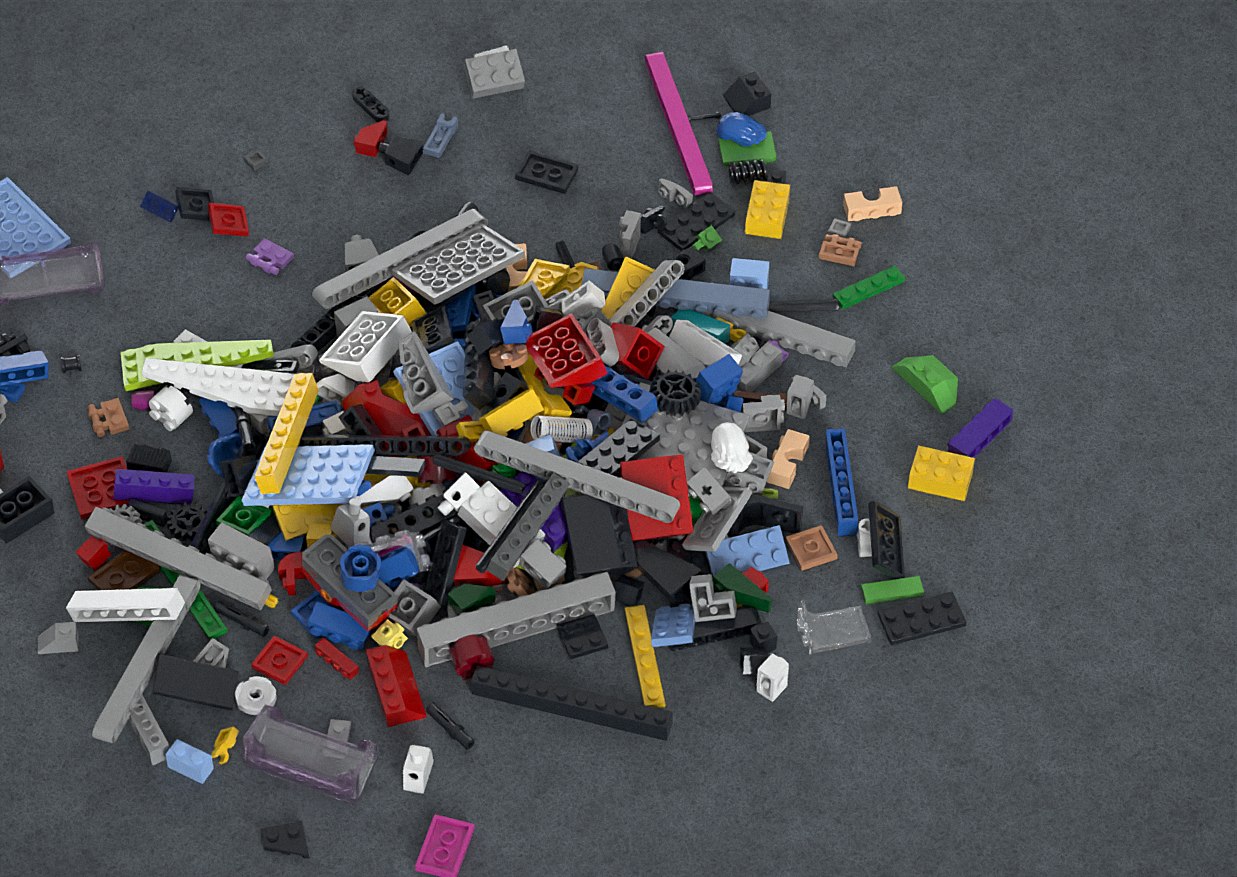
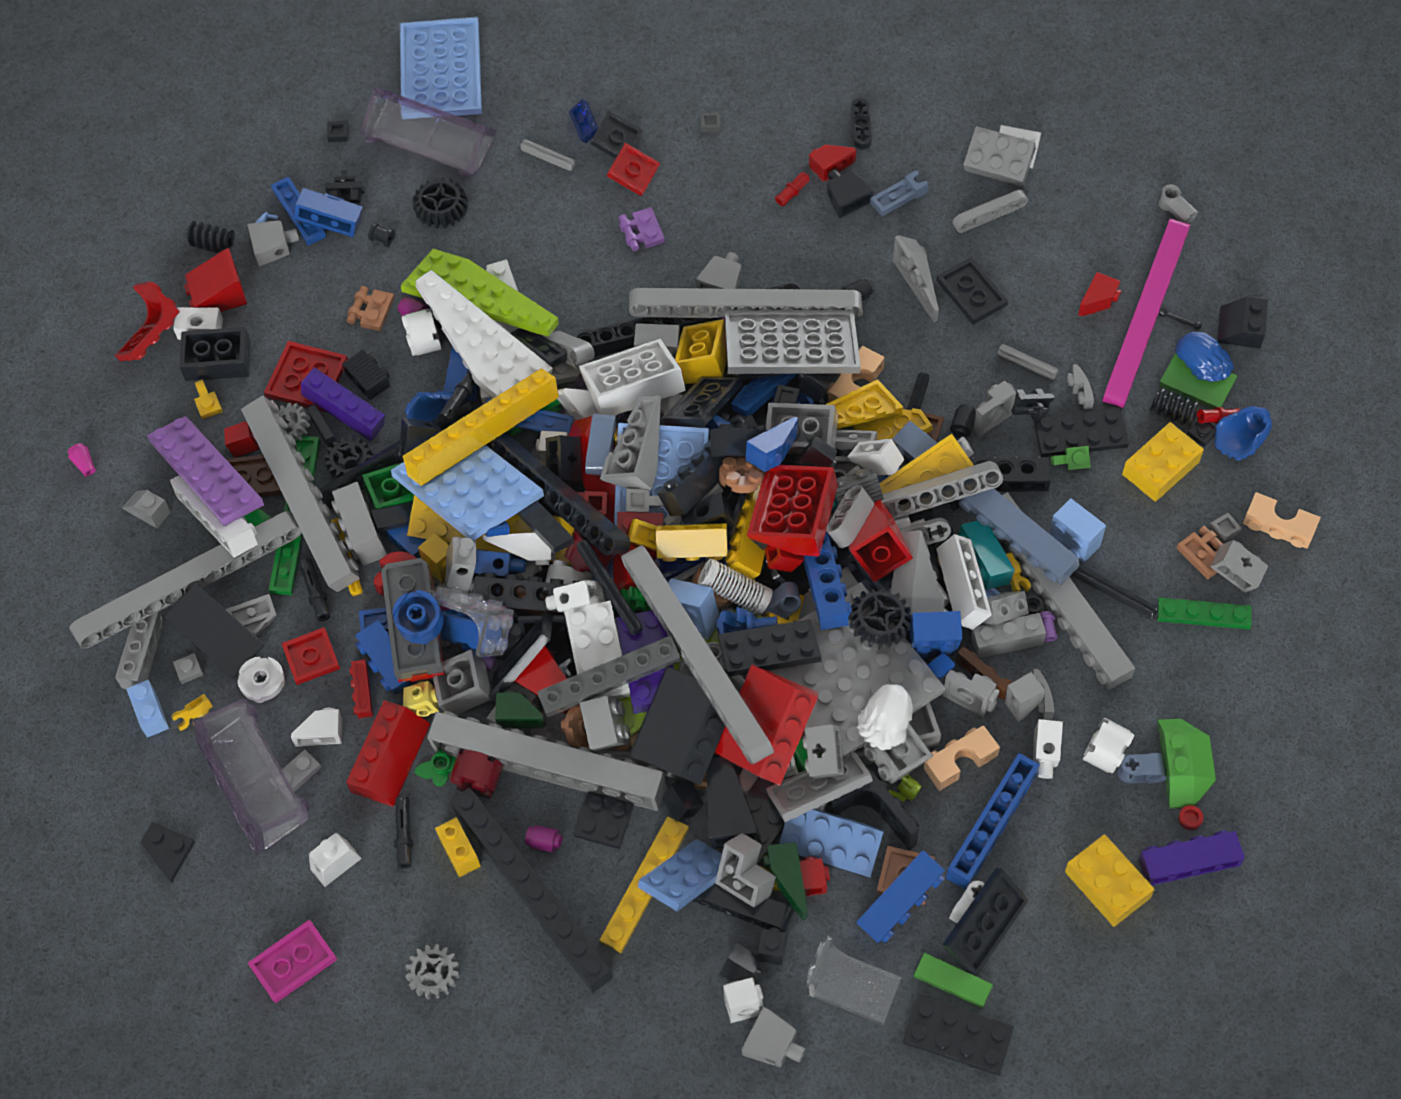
camera: 40 degrees right, 10 degrees up
(36, 548) = (207, 402): none -> yellow plate
(91, 582) = (205, 470): none -> medium lavender plate
(98, 318) = (440, 202): none -> black gear
(150, 244) = (547, 155): none -> light grey axle
(192, 722) = (188, 668): none -> light grey plate
(332, 699) = (320, 728): none -> white slope
(359, 173) = (792, 189): none -> red axle
(385, 396) = (600, 442): none -> sand blue beam
(437, 674) = (437, 768): none -> green animal
(484, 561) = (591, 663): black axle -> none
(497, 179) = (914, 267): none -> light grey wedge
(498, 709) = (457, 847): none -> yellow brick
(515, 114) = (990, 211): none -> light grey beam
(547, 789) = (425, 977): none -> light grey gear
(552, 670) = (543, 838): none -> magenta brick
(623, 197) = (1027, 362): none -> light grey axle
(635, 43) = (1172, 201): none -> light grey piece
(638, 128) = (1100, 294): none -> red slope
(780, 161) = (1214, 415): none -> red pin
(805, 162) = (1242, 432): none -> blue piece
(810, 691) = (772, 1040): none -> light grey torso
(822, 558) = (900, 897): none -> blue brick
(837, 415) = (1047, 738): none -> white torso
(869, 244) = (1239, 566): none -> light grey brick
(876, 395) = (1107, 746): none -> white brick
(907, 399) = (1143, 768): none -> sand blue piece
(959, 410) = (1190, 817): none -> red tile

